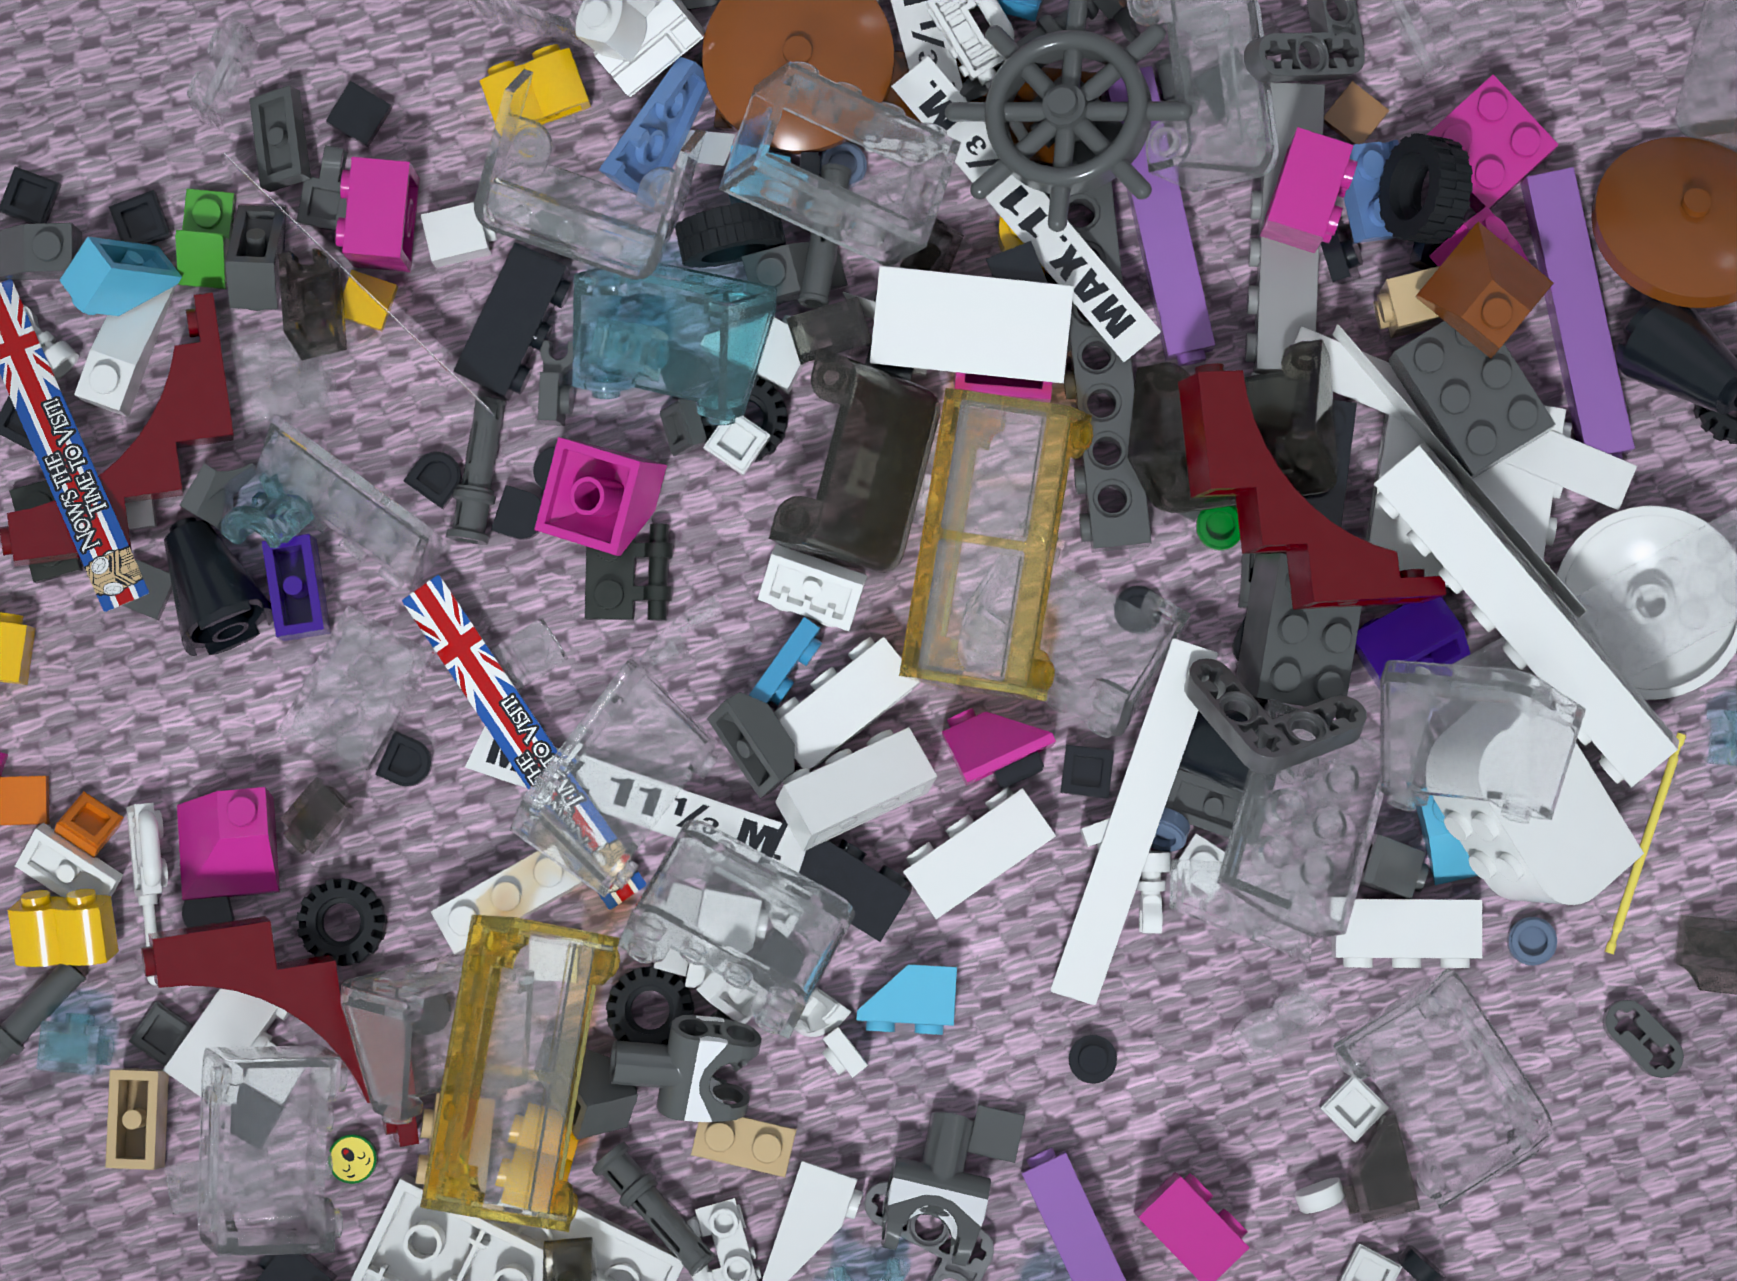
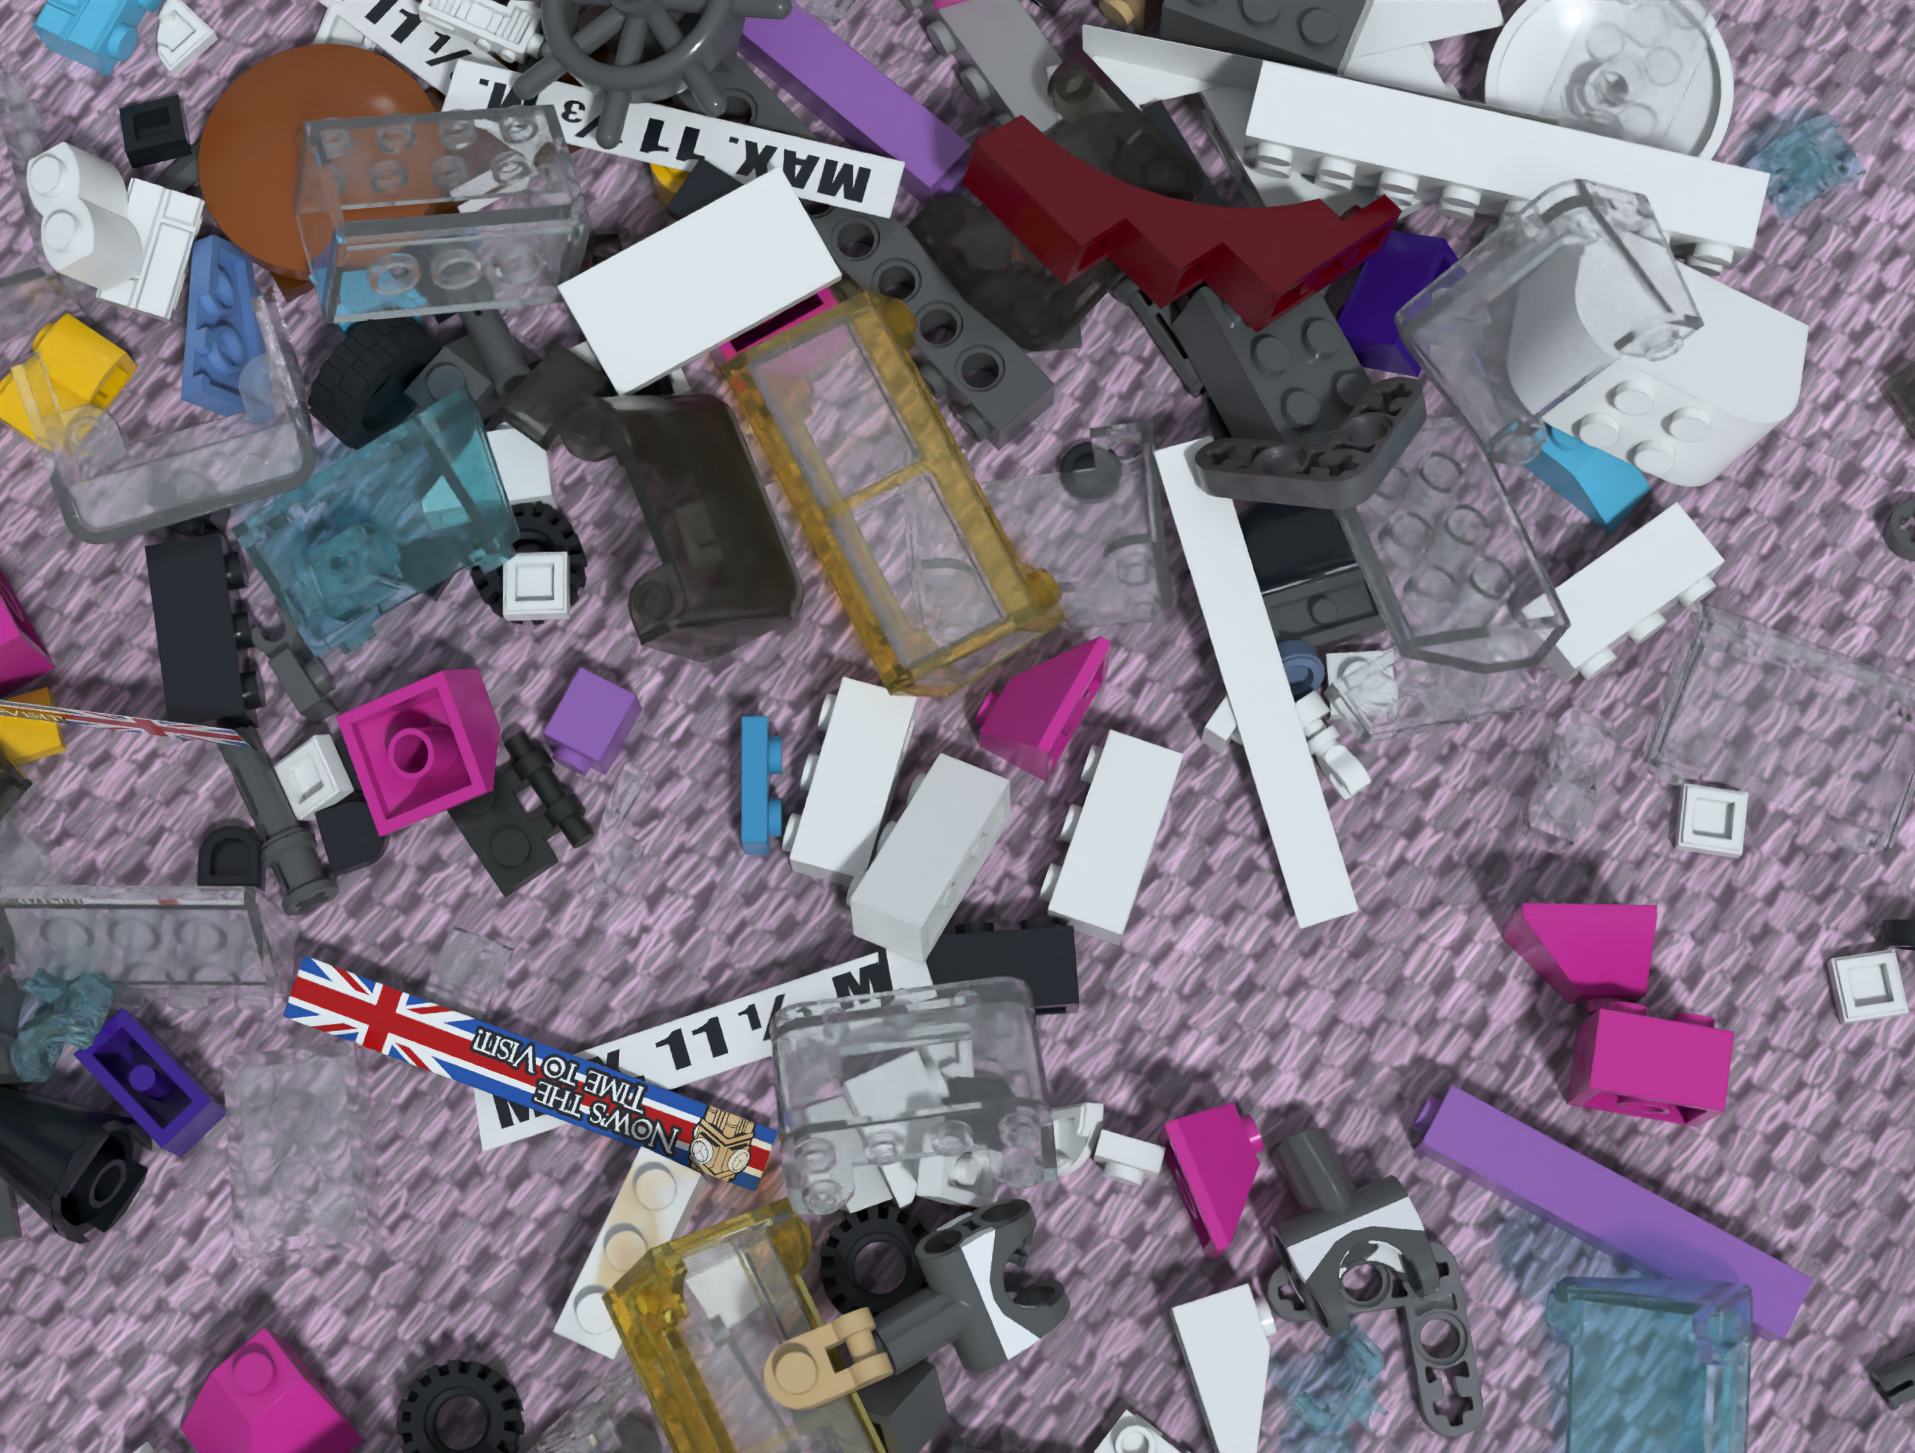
camera: 40 degrees left, 10 degrees down
(318, 817) = (350, 1320): clear smoke slope -> none
(405, 761) = (410, 1192): black tile -> none
(456, 235) = (79, 586): white brick -> none
(519, 461) = (313, 777): none -> white tile
(557, 1044) = (802, 1372): none -> tan plate
(614, 780) = (655, 1035): clear windscreen -> none
(683, 426) = (467, 616): dark grey tile -> none
(711, 551) = (591, 723): none -> medium lavender brick
(714, 148) = (298, 303): white sticker -> none
(746, 1144) = (1094, 1340): tan plate -> none
(755, 741) = (783, 884): dark grey slope -> none
(812, 587) = (728, 681): white bracket -> none
(888, 1099) = (1213, 1170): none -> dark pink slope
(914, 996) = (1161, 1037): medium azure slope -> none
(996, 1133) = (1358, 1125): dark grey tile -> none
(1018, 770) = (1091, 720): black tile -> none
(1087, 771) = (1163, 671): black plate -> none
(1092, 1059) = (1399, 969): black plate -> none
(1210, 1136) = (1587, 949): none -> dark pink slope
(1218, 528) = (1111, 331): green tile -> none
(1320, 1195) = (1751, 936): white tile -> none
(1381, 1175) = (1797, 866): clear smoke slope -> none
(1394, 868) = (1562, 532): dark grey slope -> none
(1532, 941) = (1755, 518): sand blue tile -> none
(1644, 845) = (1806, 387): light yellow piece -> none

